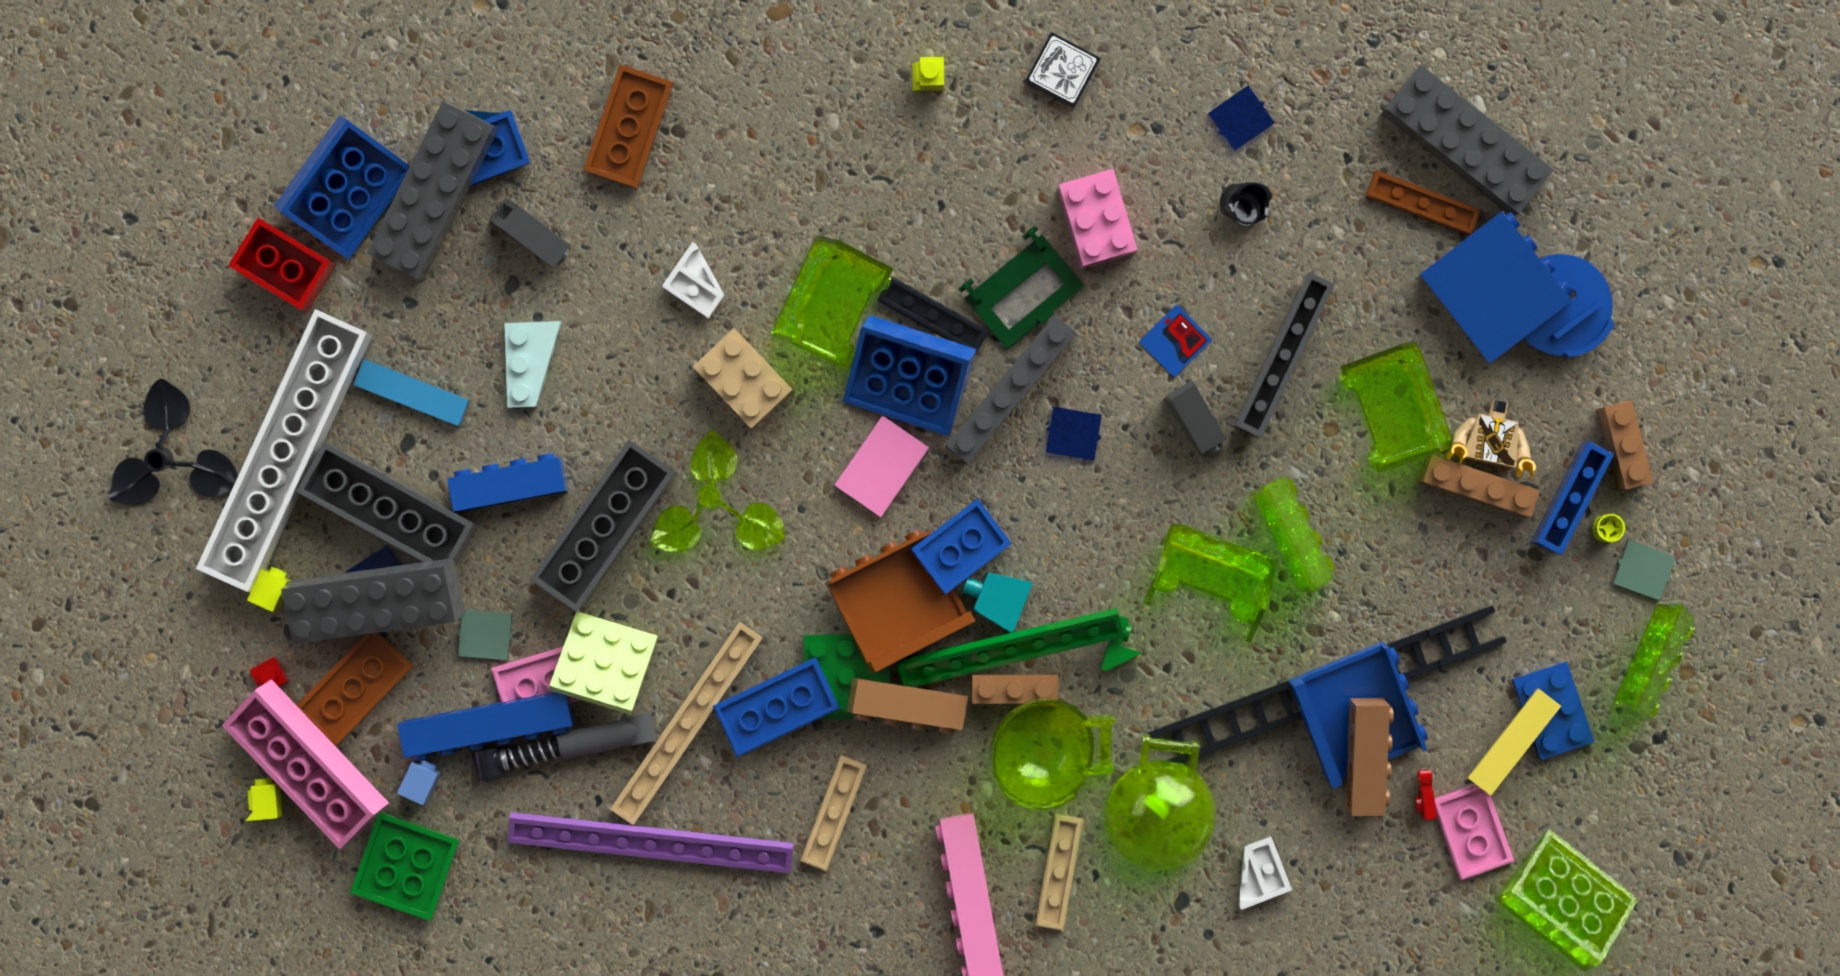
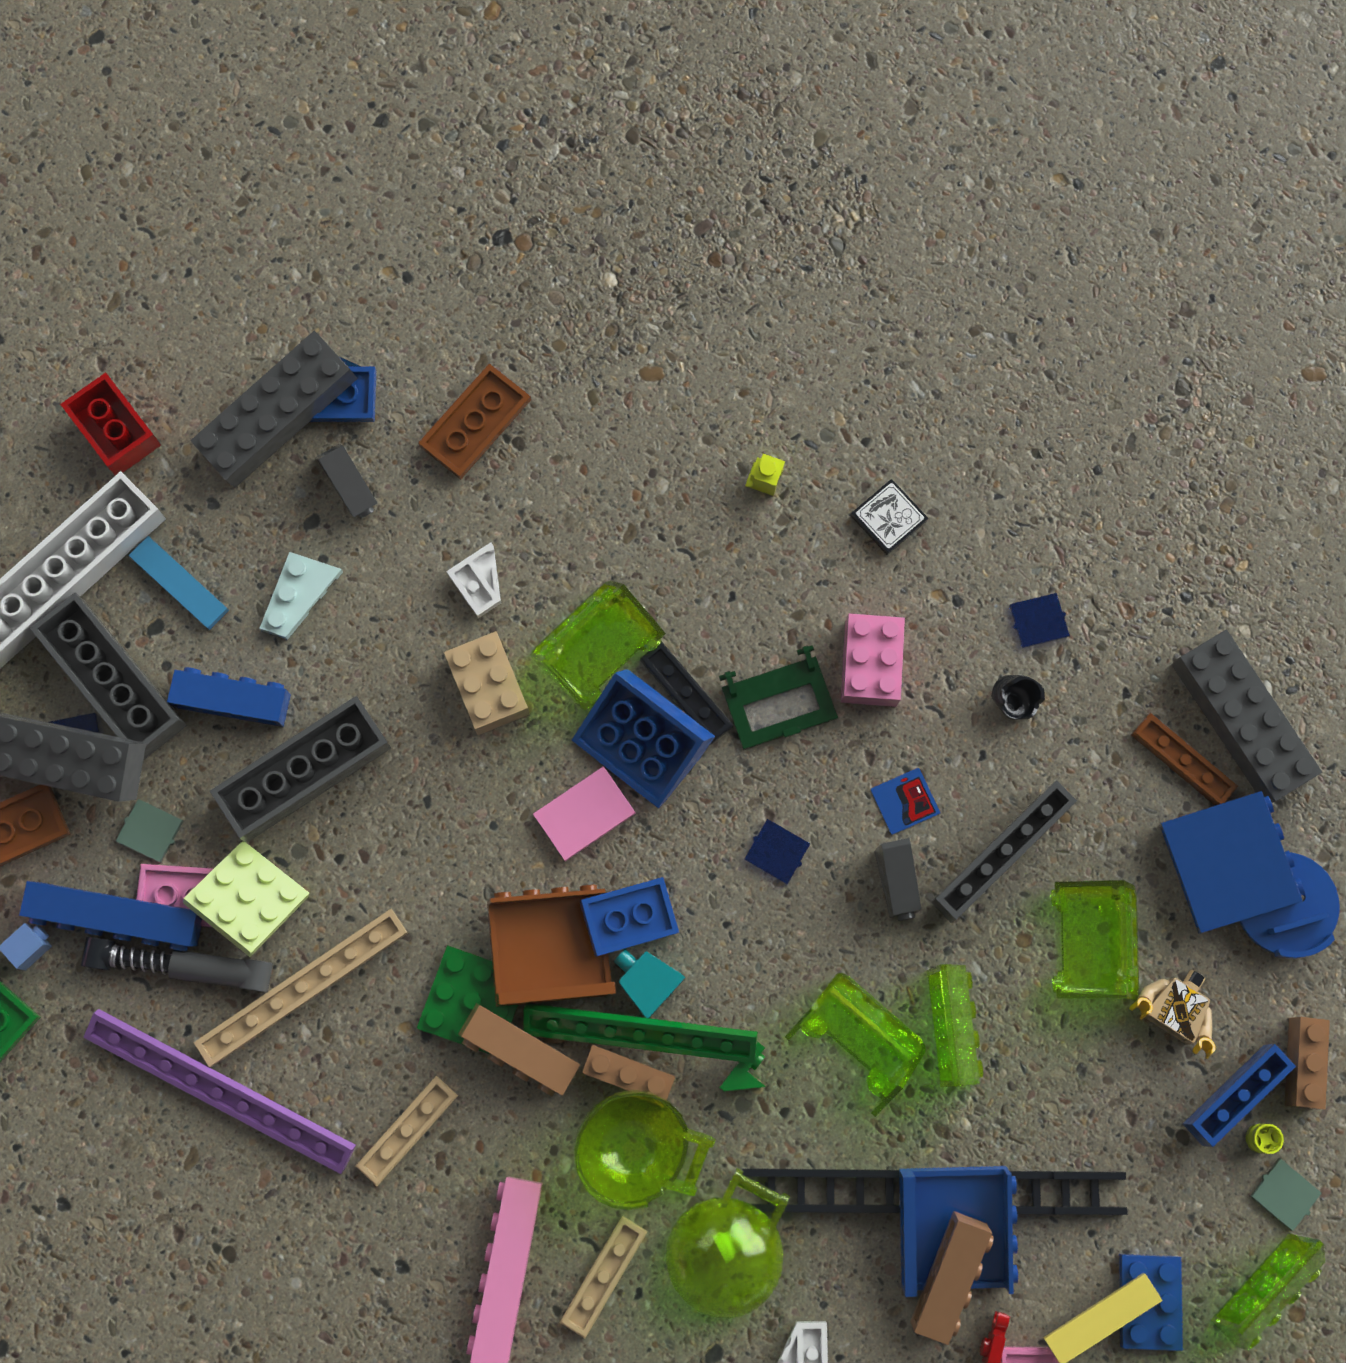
camera: 20 degrees right, 10 degrees down
(343, 187) = (195, 379): blue slope -> none
(715, 460) = (370, 796): clear neon green plant -> none
(776, 707) = (392, 1004): blue tile -> none
(1011, 389) = (733, 787): dark grey brick -> none
(1478, 486) = (1150, 1049): medium nougat brick -> none

